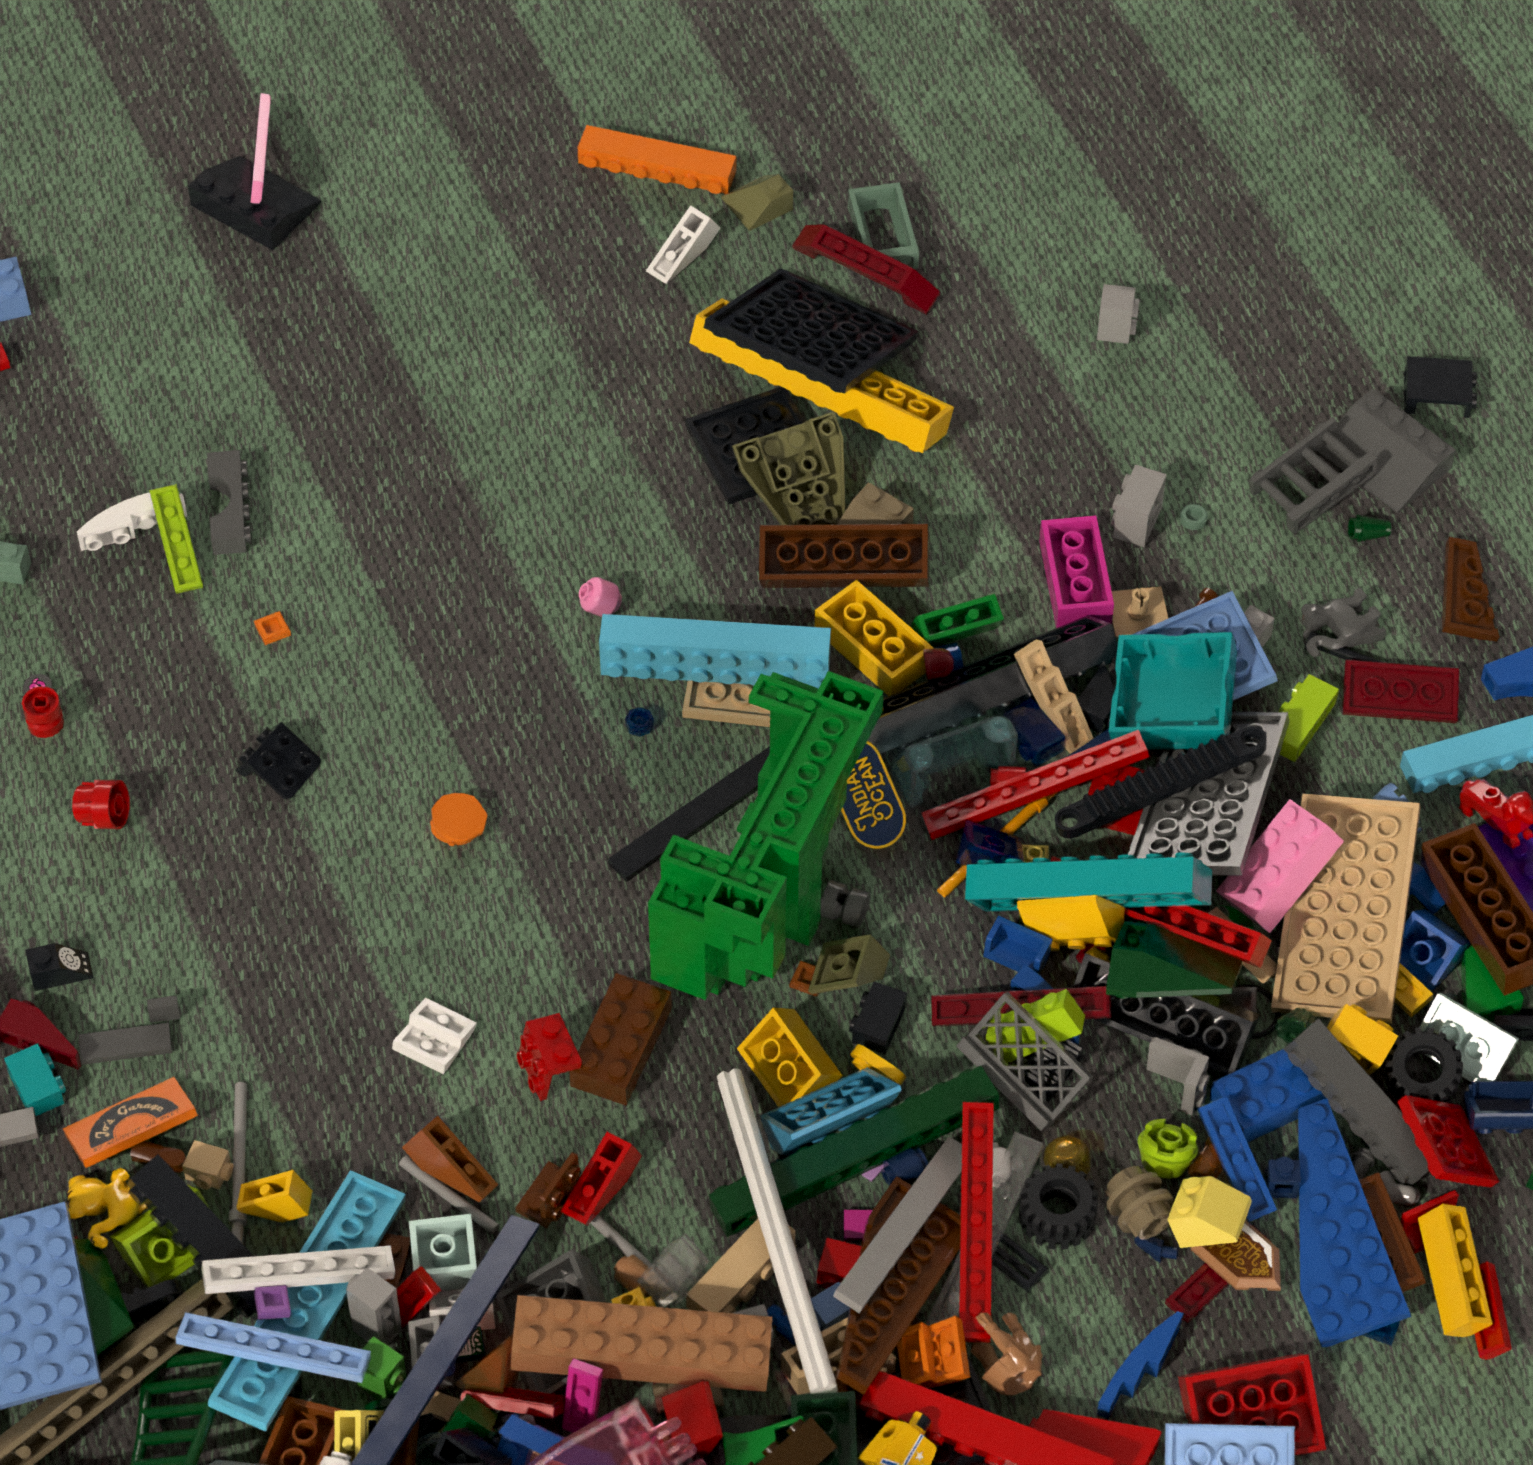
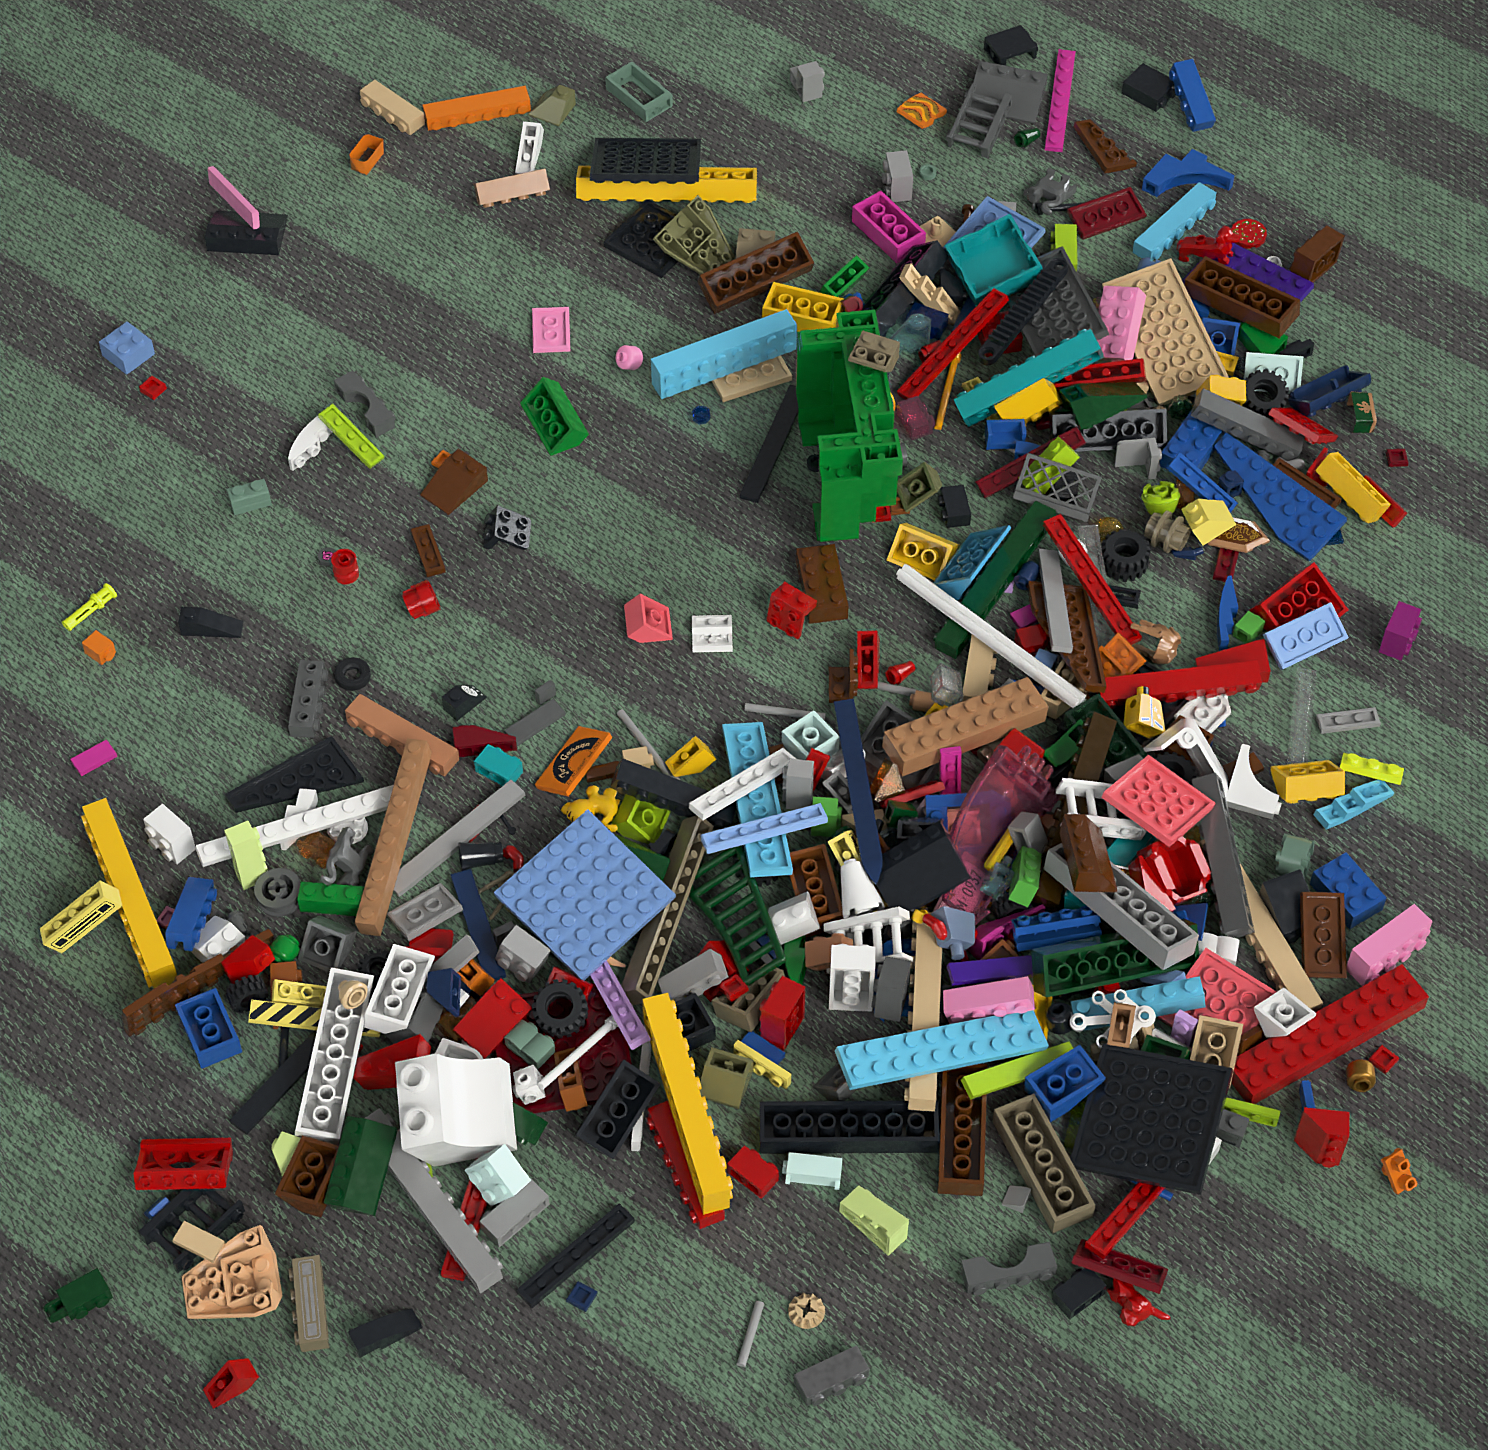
camera: 30 degrees left, 0 degrees up
(162, 740) = (428, 550): none -> reddish brown plate
(260, 663) = (455, 481): none -> reddish brown slope
(272, 1302) = (742, 807): medium lavender tile -> none
(362, 976) = (647, 620): none -> coral slope
(448, 633) = (553, 417): none -> green slope
(448, 1160) = (772, 692): dark orange slope -> none
(458, 818) = (637, 513): orange hat -> none
(468, 152) = (366, 141): none -> orange piece
(534, 510) = (551, 329): none -> bright pink tile
(550, 111) = (392, 107): none -> tan brick
(619, 289) = (512, 186): none -> brick
(635, 1217) = (898, 673): none -> red cone
(780, 981) = (883, 513): none -> red tile
(825, 755) = (875, 352): none -> dark tan slope
(866, 1058) = (963, 530): yellow plate -> none
(868, 262) = (645, 110): dark red slope -> none
(916, 864) = (915, 417): none -> clear pink brick
(987, 844) = (945, 391): clear blue slope -> none
(1158, 1402) = (1248, 627): none -> bright green brick
(1248, 424) = (921, 110): none -> slope
(1456, 495) = (1060, 100): none -> dark pink plate

